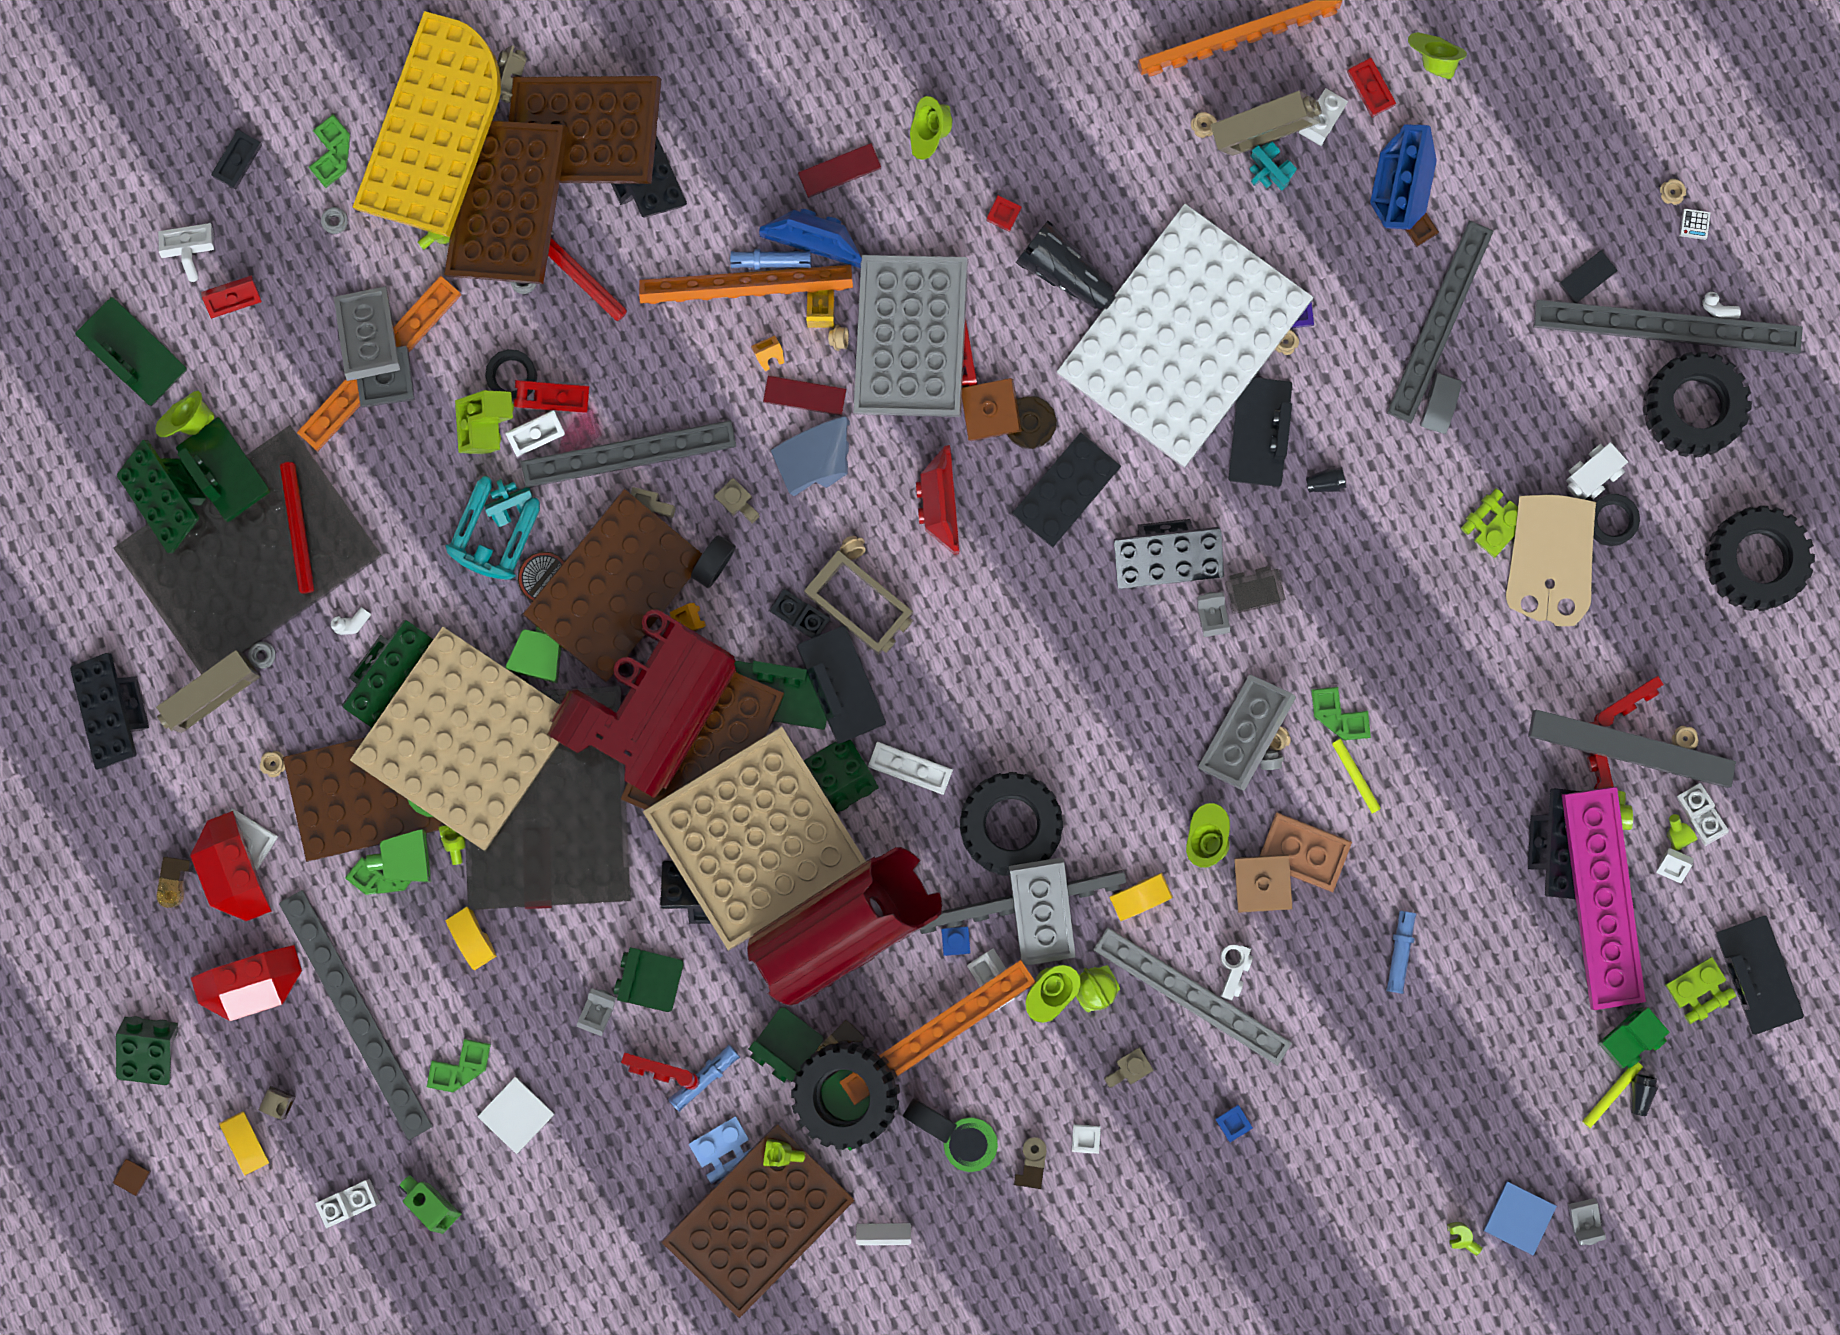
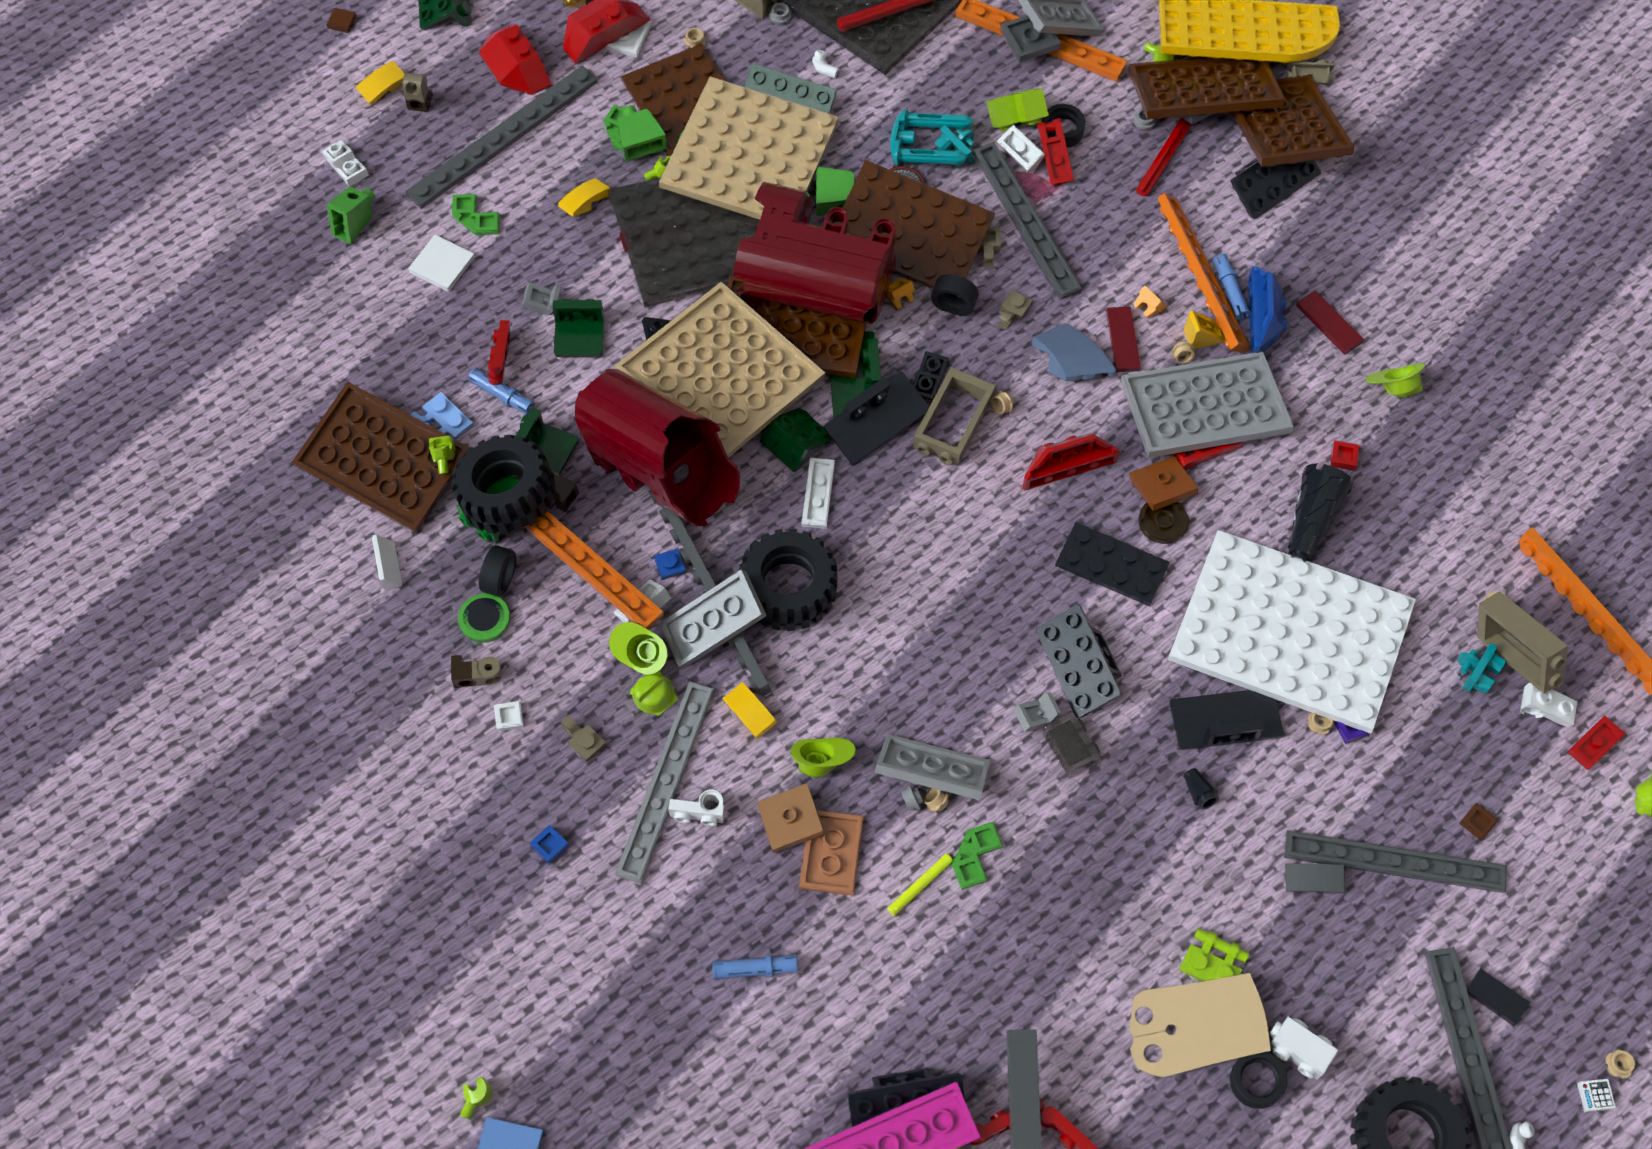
camera: 75 degrees right, 20 degrees down
(1404, 177) = (1525, 792): blue wedge -> none

